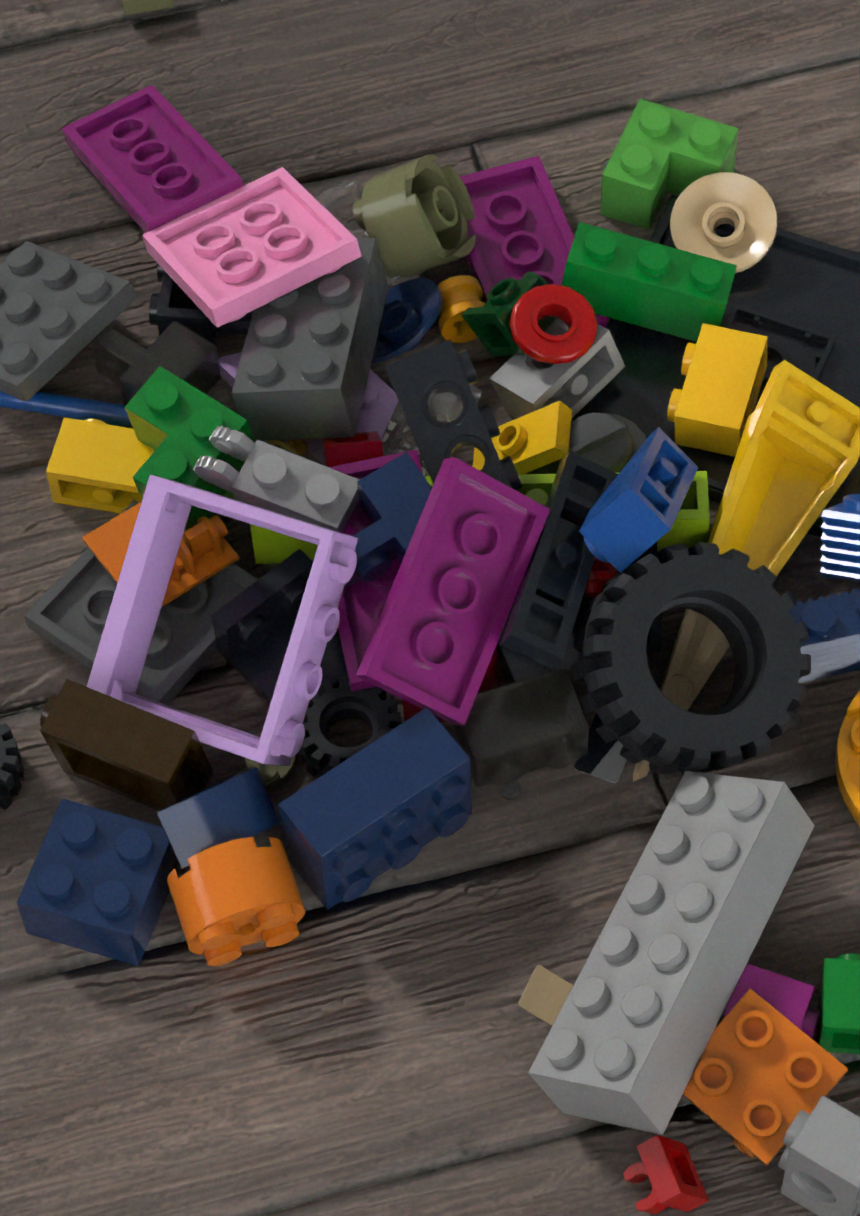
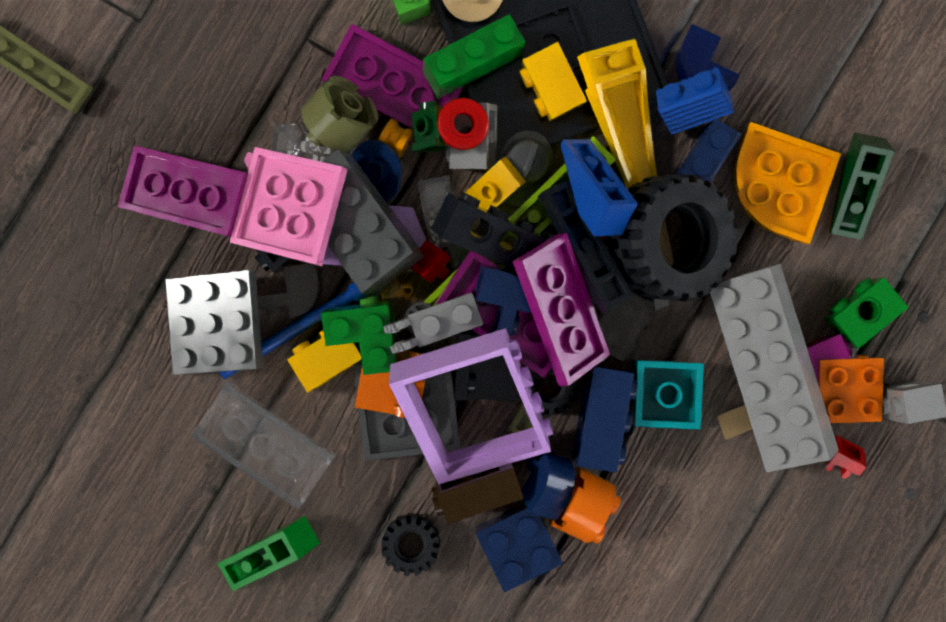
camera: 45 degrees left, 30 degrees up
(493, 861) = (667, 394): none -> teal brick

